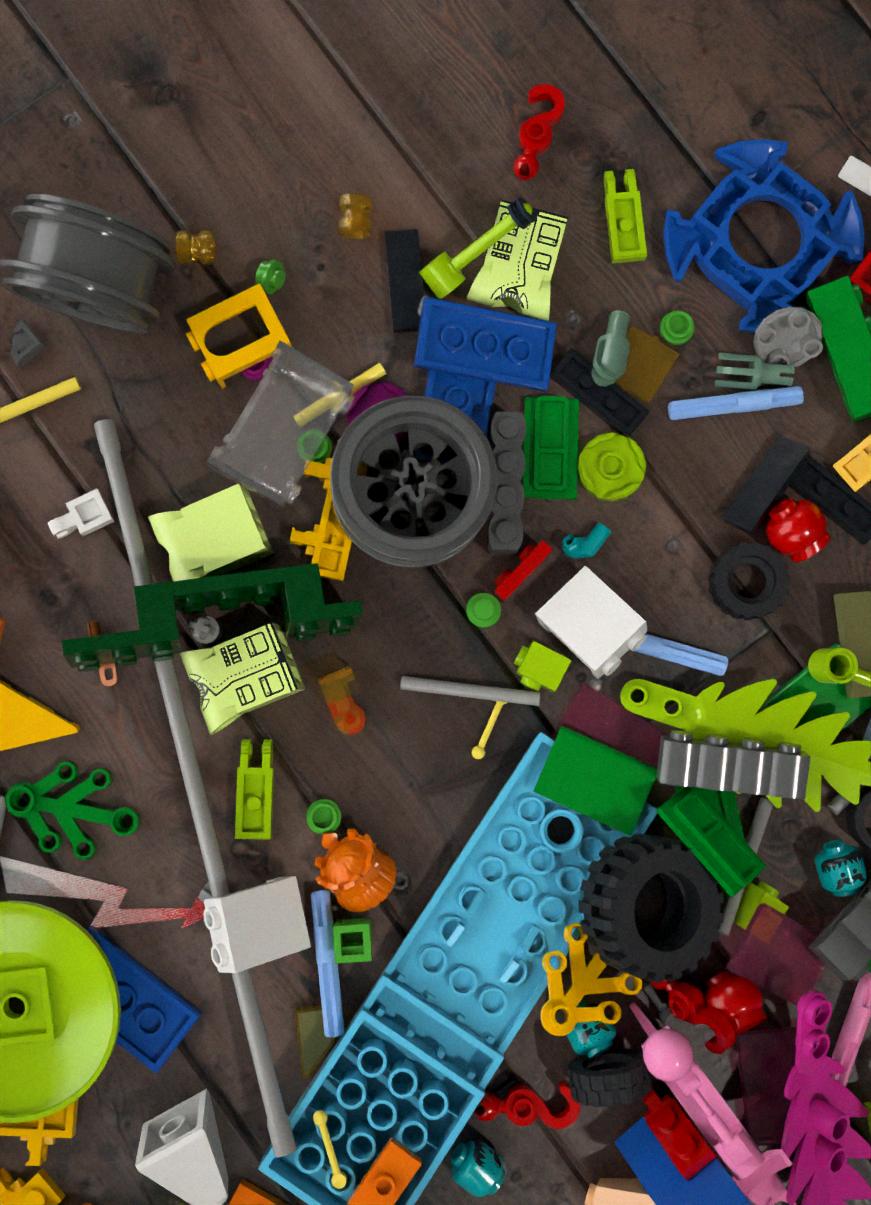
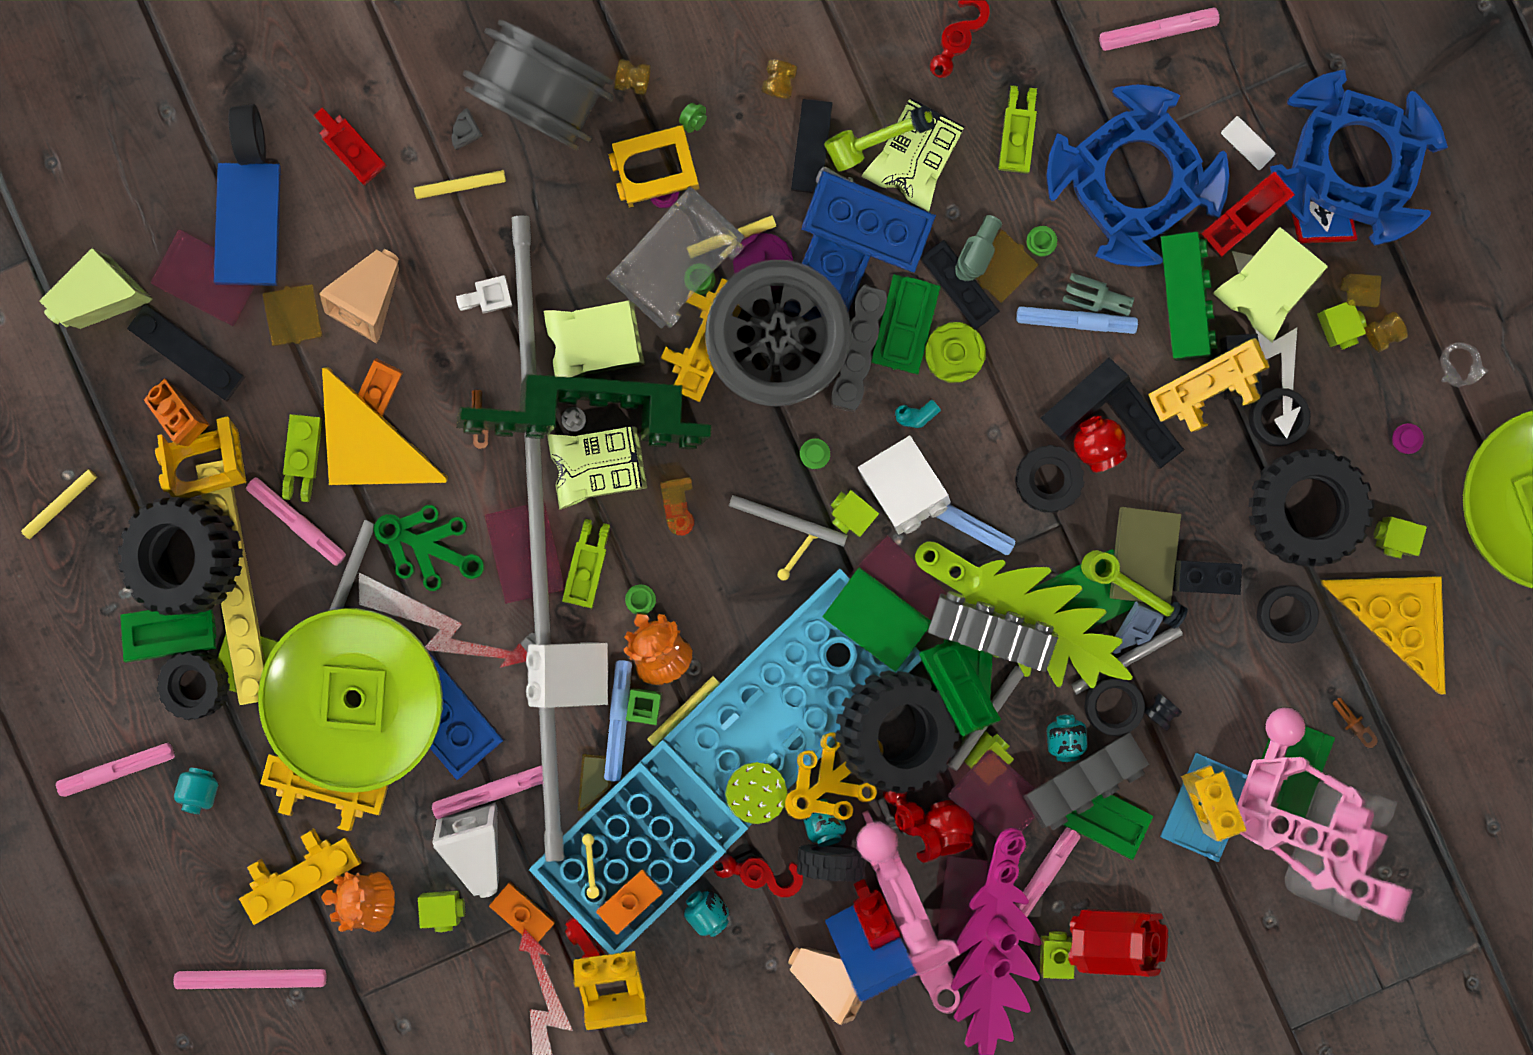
camera: 15 degrees right, 5 degrees up
(166, 794) = (512, 553): none -> clear pink tile
(192, 1082) = (488, 792): none -> bright pink axle
(399, 934) = (683, 711): none -> light yellow bar
(504, 1014) = (756, 793): none -> lime tile
(530, 559) = (865, 418): red plate -> none
(747, 82) = (1159, 29): none -> bright pink axle
(789, 337) = (1135, 273): light grey dish -> none

